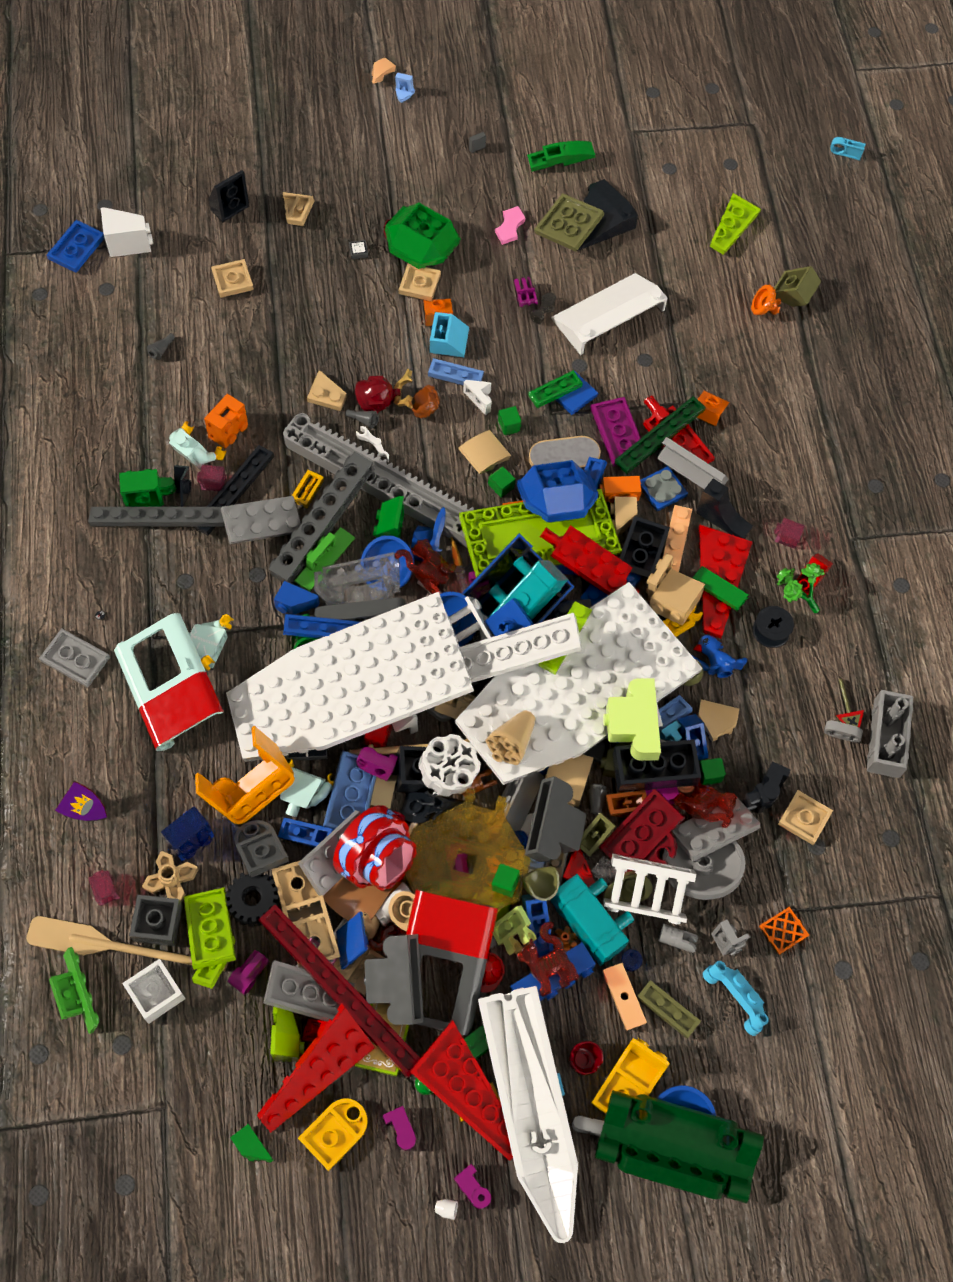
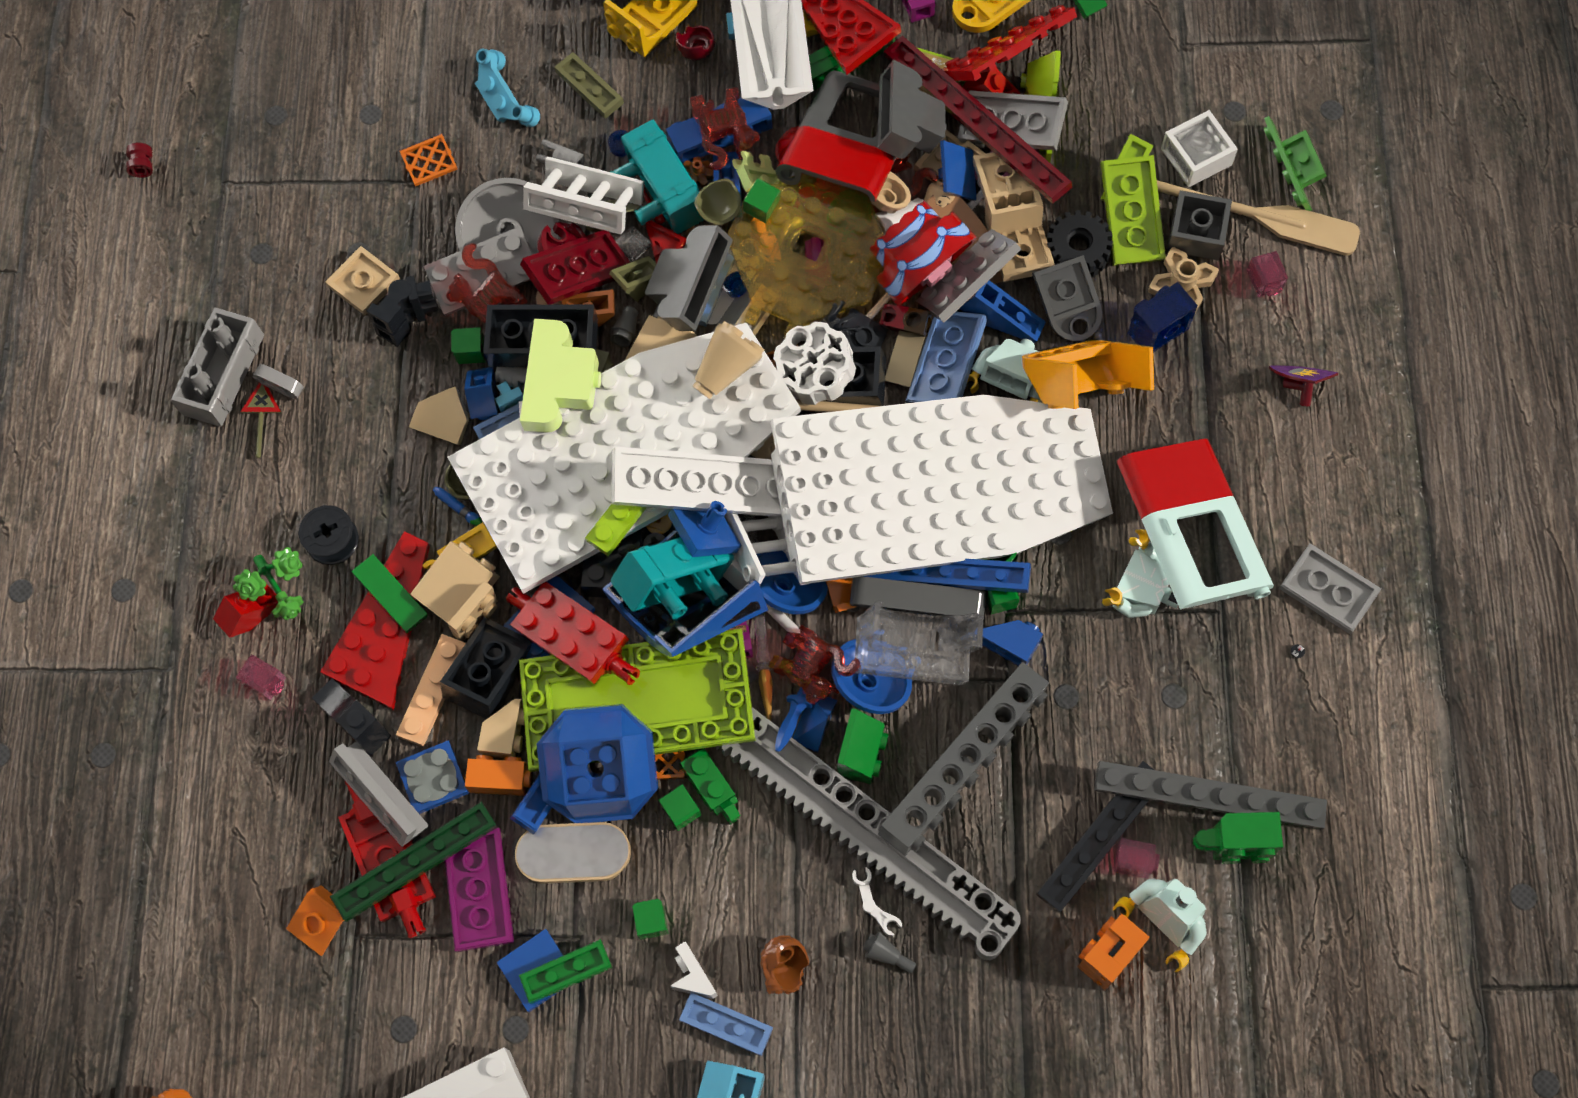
camera: 165 degrees left, 5 degrees up
(182, 482) = (1181, 854): black piece -> none
(244, 977) = (1085, 164): magenta piece -> none
(260, 519) = (1058, 766): light grey plate -> none
(300, 501) = (972, 852): yellow tile -> none
(325, 554) = (963, 705): bright green bracket -> none
(326, 393) = (945, 1011): tan wing -> none
(376, 763) = (902, 382): magenta leg -> none
(377, 393) = (864, 991): dark red helmet -> none
(481, 494) = (711, 785): none -> green hinge
(484, 452) = (699, 867): tan slope -> none
(620, 984) = (635, 92): light nougat tile -> none
(720, 661) = (417, 489): blue animal -> none
(726, 938) = (495, 138): light grey bracket -> none

